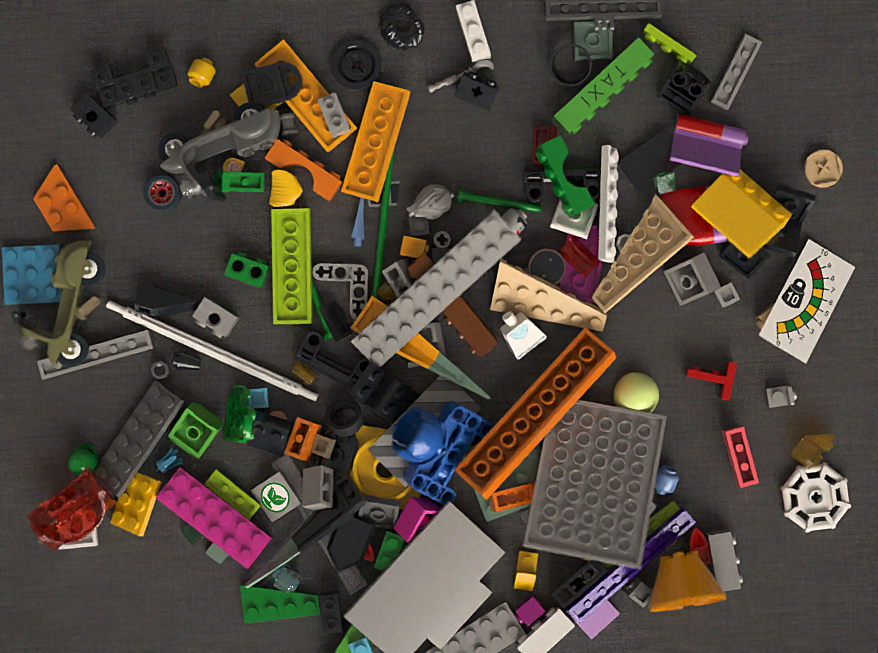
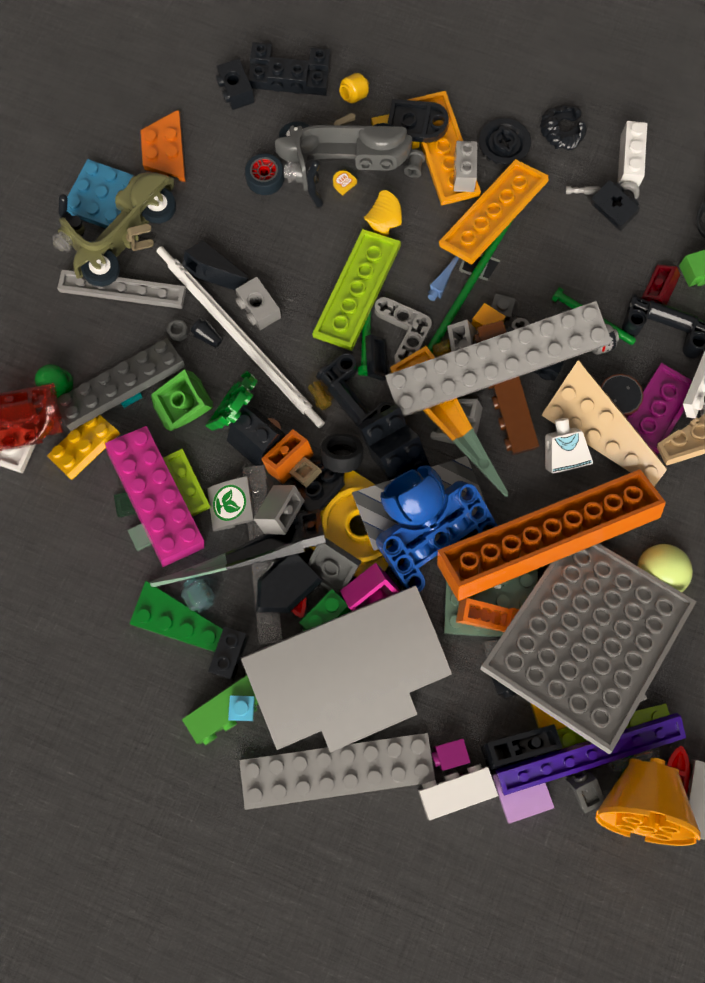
camera: 20 degrees right, 15 degrees down
(168, 461) = (132, 421): dark azure piece -> none
(238, 181) = (343, 190): green bracket -> none
(245, 274) = (307, 276): green brick -> none
(259, 398) = (262, 398): medium azure plate -> none
(283, 156) = (426, 228): orange arch -> none
(431, 202) = (526, 286): light grey hair -> none
(525, 570) = (465, 708): yellow slope -> none
(573, 198) = (678, 336): green arch -> none
(576, 225) = (669, 359): white tile -> none
(579, 256) = (658, 399): clear red slope -> none
(666, 480) = (667, 676): medium blue head -> none

